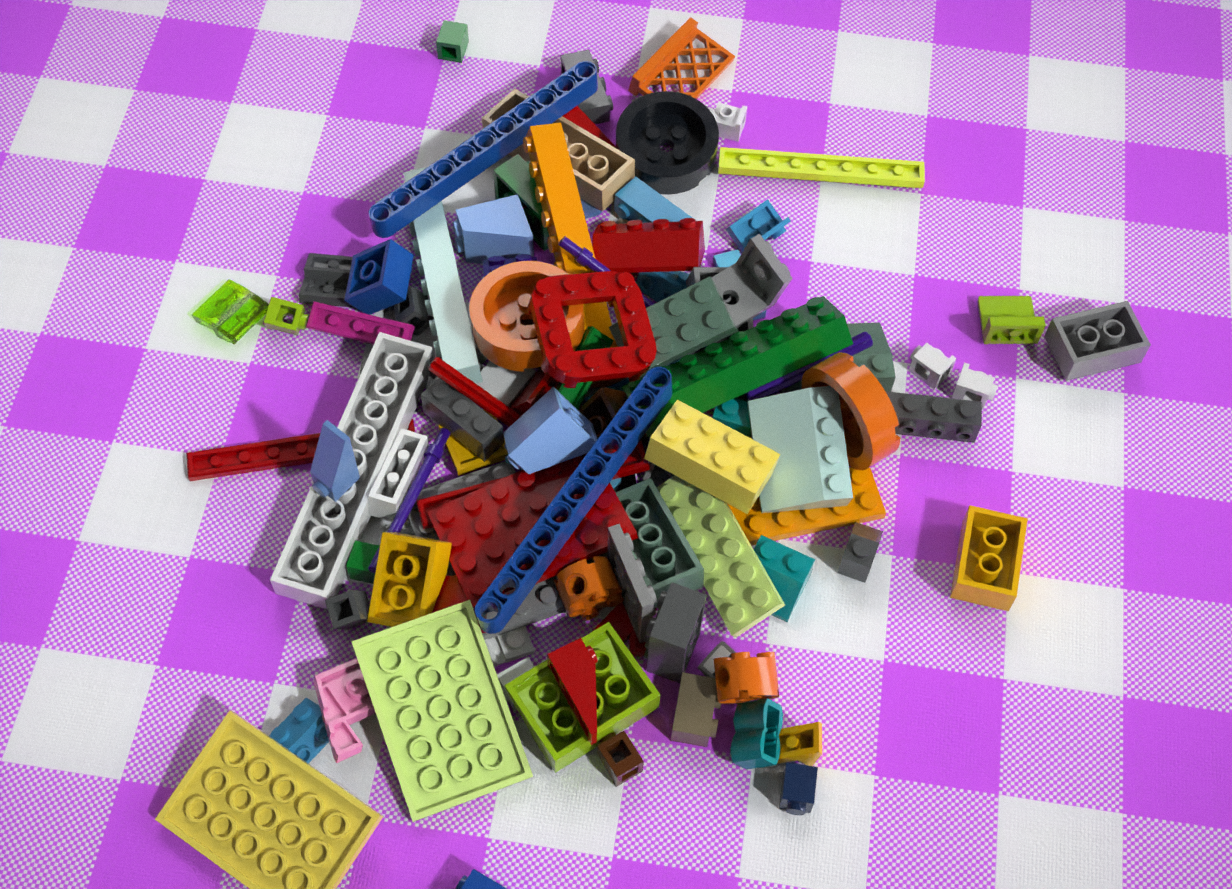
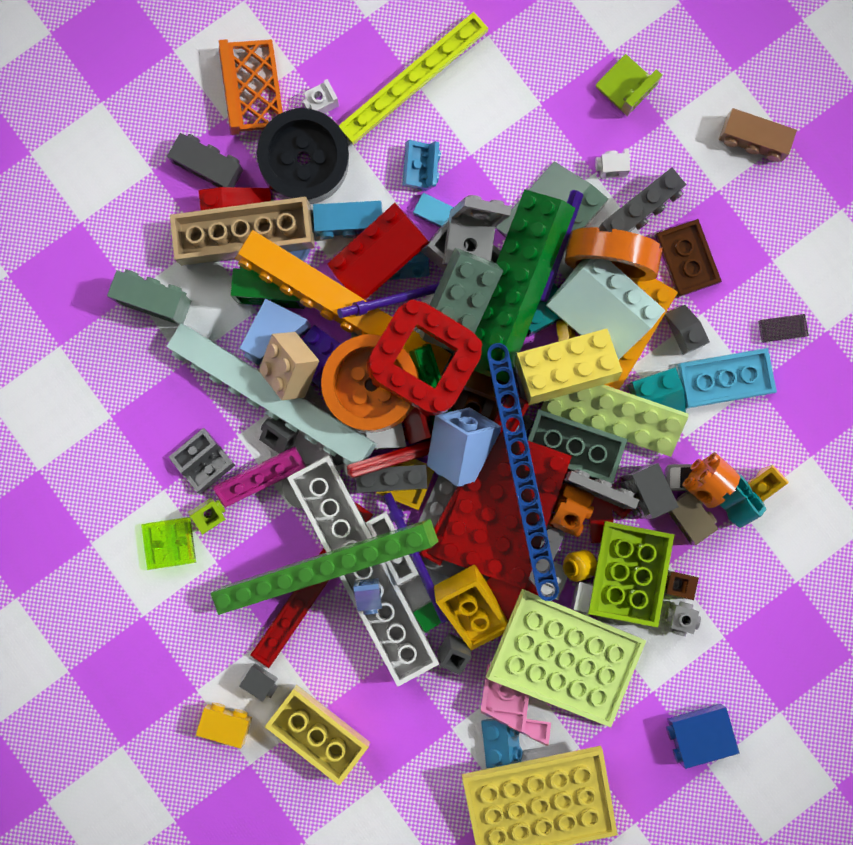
camera: 45 degrees left, 25 degrees up
(97, 482) = (224, 725): none -> yellow brick
(159, 561) = (317, 735): none -> light yellow brick
(166, 477) = (259, 682): none -> dark grey brick
(307, 412) = (325, 566): none -> bright green brick
(379, 277) = (237, 436): blue brick -> none
(429, 123) = (149, 296): none -> sand green brick
(452, 41) = (79, 210): brick -> none
(477, 251) = (288, 365): none -> tan brick
(482, 150) = (202, 272): blue beam -> none
(540, 642) = (579, 565): none -> yellow head
(576, 676) = (629, 574): red slope -> none
(586, 798) = (674, 618): none -> light grey brick
(798, 788) = (785, 507): dark blue brick -> none
(859, 627) = (727, 378): none -> medium azure tile
(925, 497) = (688, 258): none -> reddish brown tile
(959, 634) = (783, 328): none -> clear smoke tile
(974, 386) = (651, 155): white brick -> none
(989, 558) = (762, 267): yellow brick -> none
(1094, 453) = (757, 135): none -> medium nougat brick
(1097, 340) = (695, 52): light grey brick -> none

